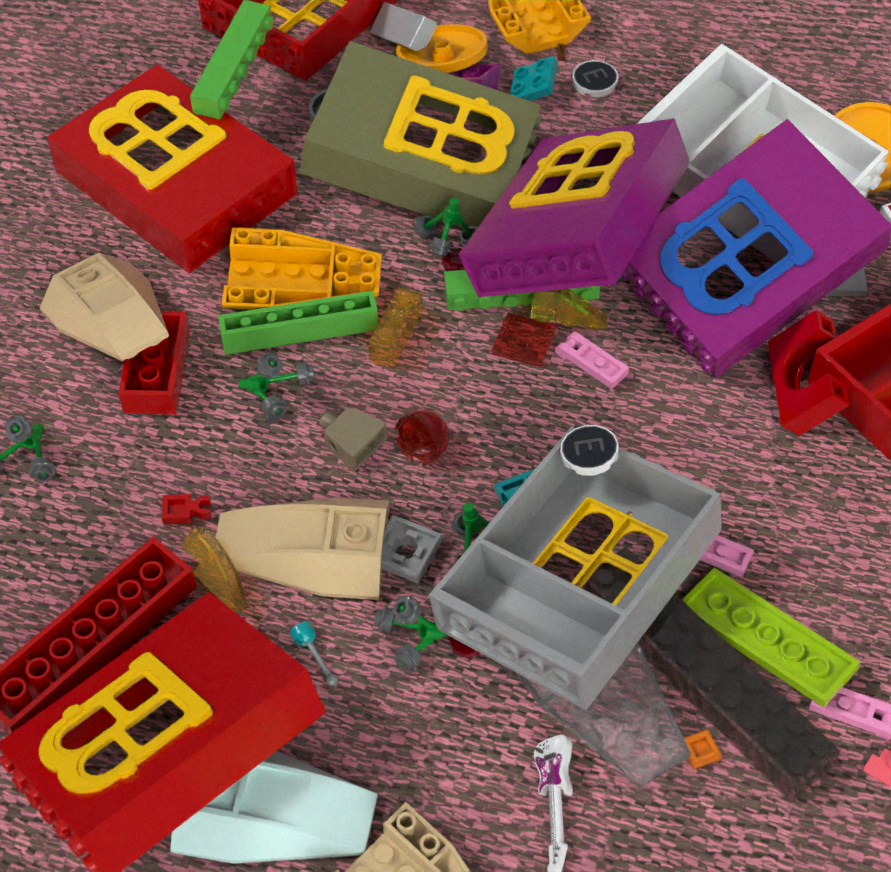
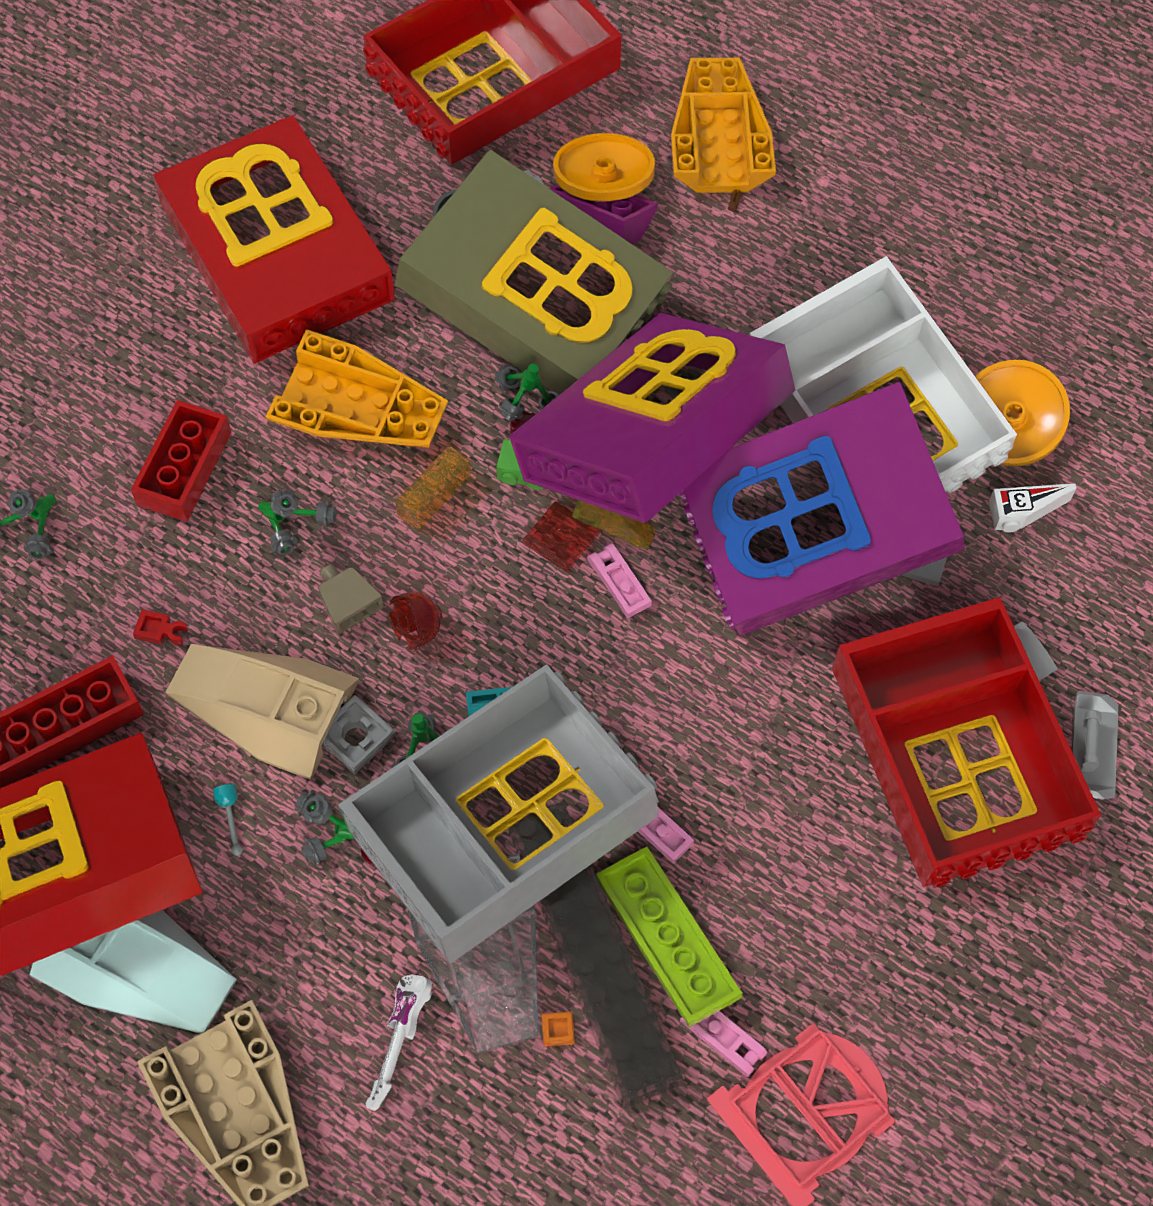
camera: 15 degrees right, 10 degrees up
(105, 306) = (153, 386): tan wedge -> none
(215, 568) = (163, 705): clear yellow slope -> none
(231, 60) = (367, 133): bright green brick -> none
(298, 322) = (337, 455): bright green brick -> none
(403, 27) = (570, 130): light grey piece -> none
(535, 79) = (686, 233): teal plate -> none
(589, 450) = (550, 698): black tile -> none
(595, 78) = (757, 243): tile -> none
(789, 355) = (806, 696): red arch -> none

